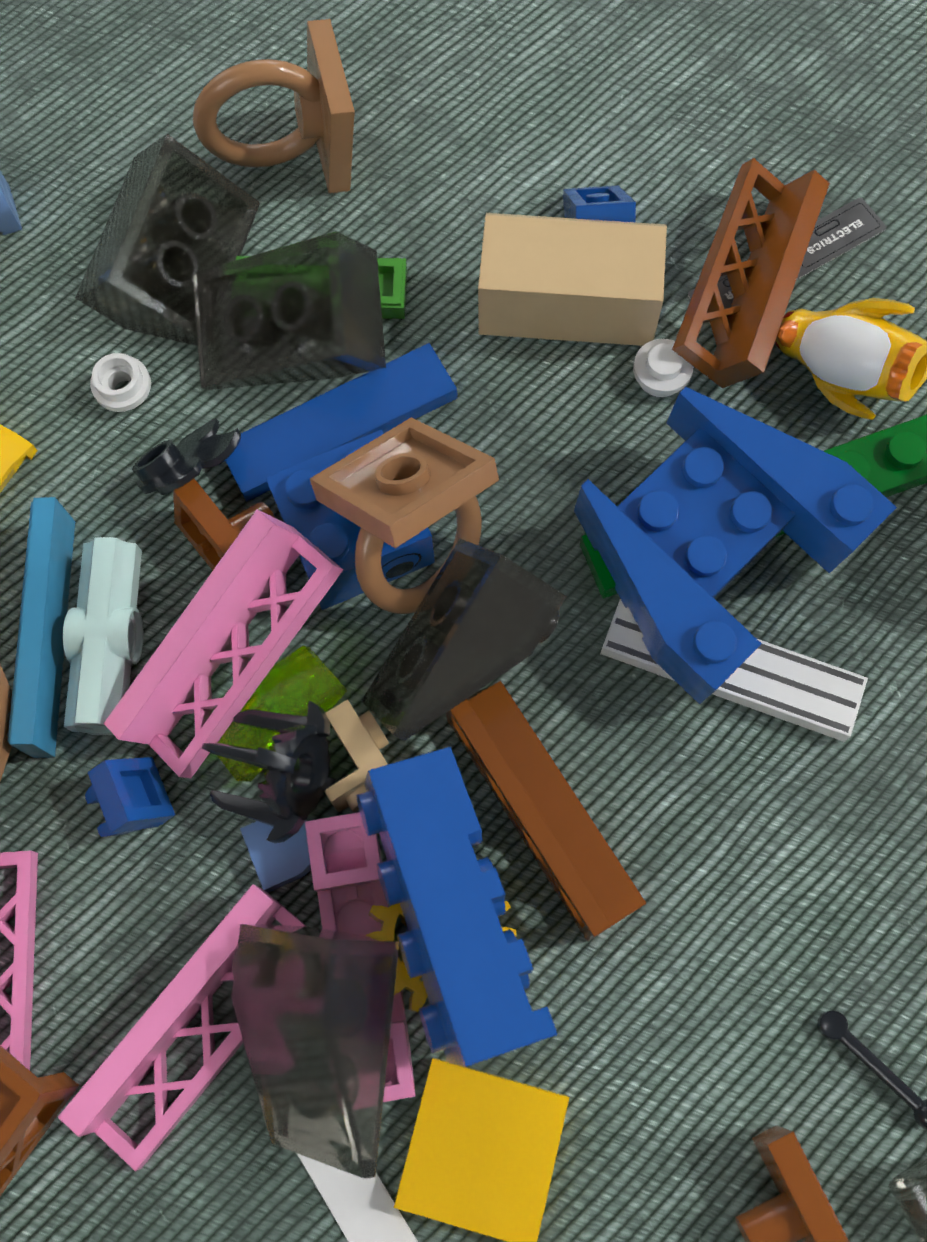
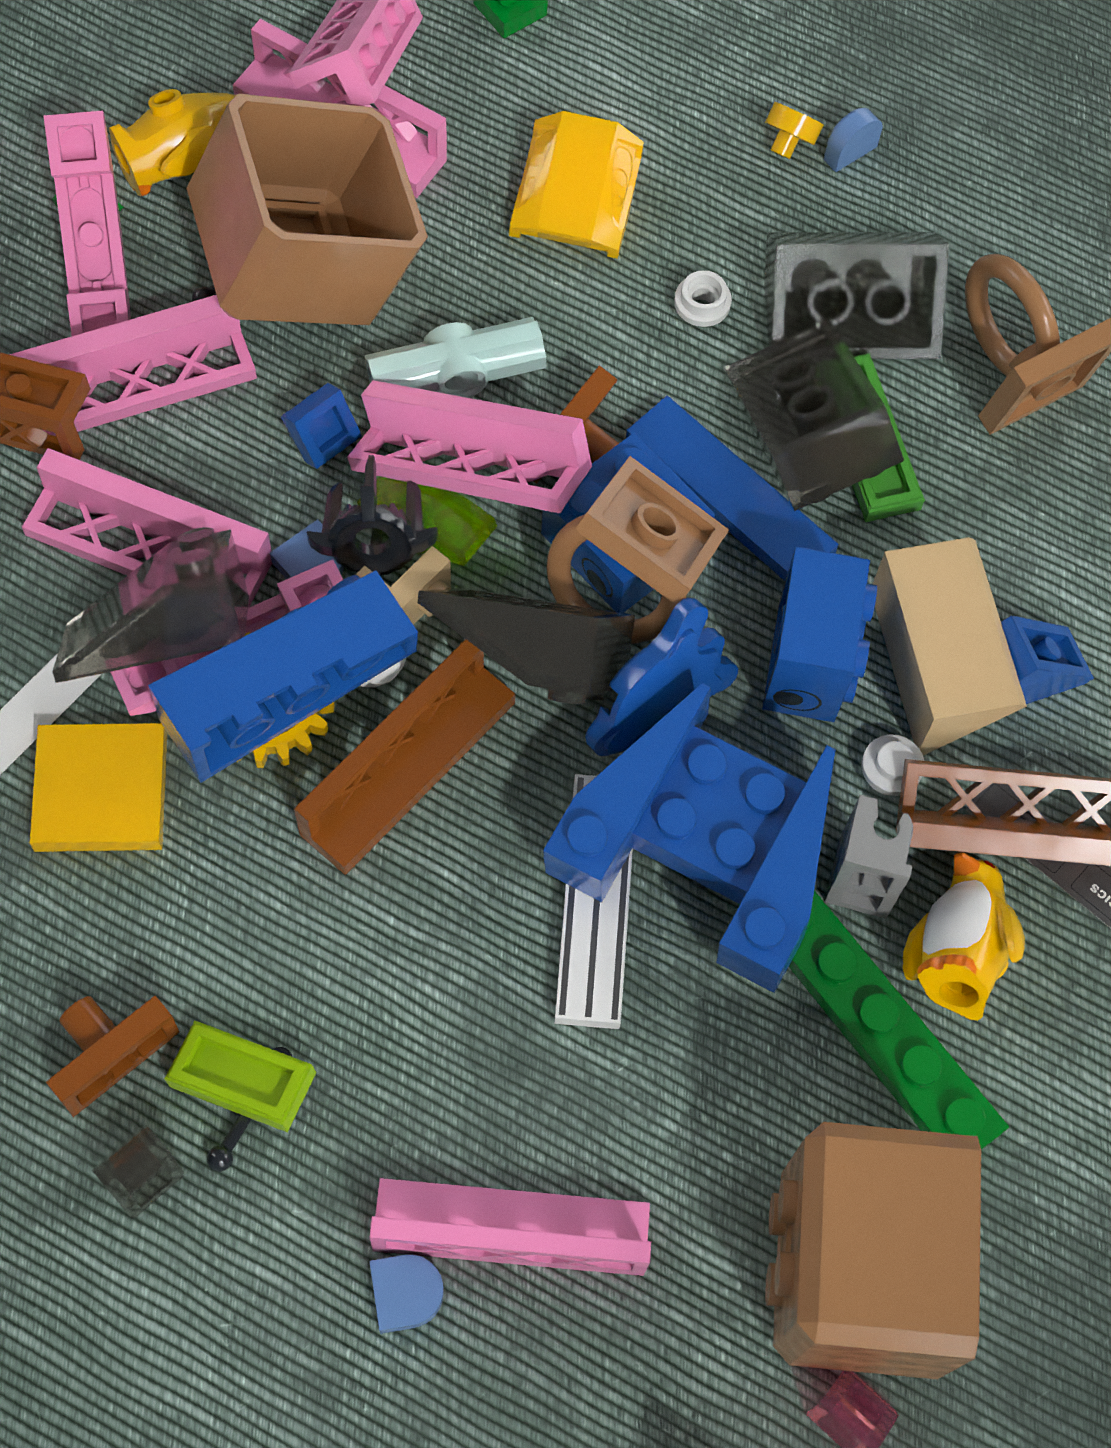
camera: 65 degrees right, 5 degrees down
(40, 631) = (476, 303): dark azure tile -> none
(174, 466) = (631, 361): black plate -> none
(533, 378) = (820, 635): none -> blue brick
(548, 534) = (661, 678): none -> blue tile
(780, 400) = (867, 868): none -> light grey hinge
(850, 1071) = (240, 1076): none -> lime tile

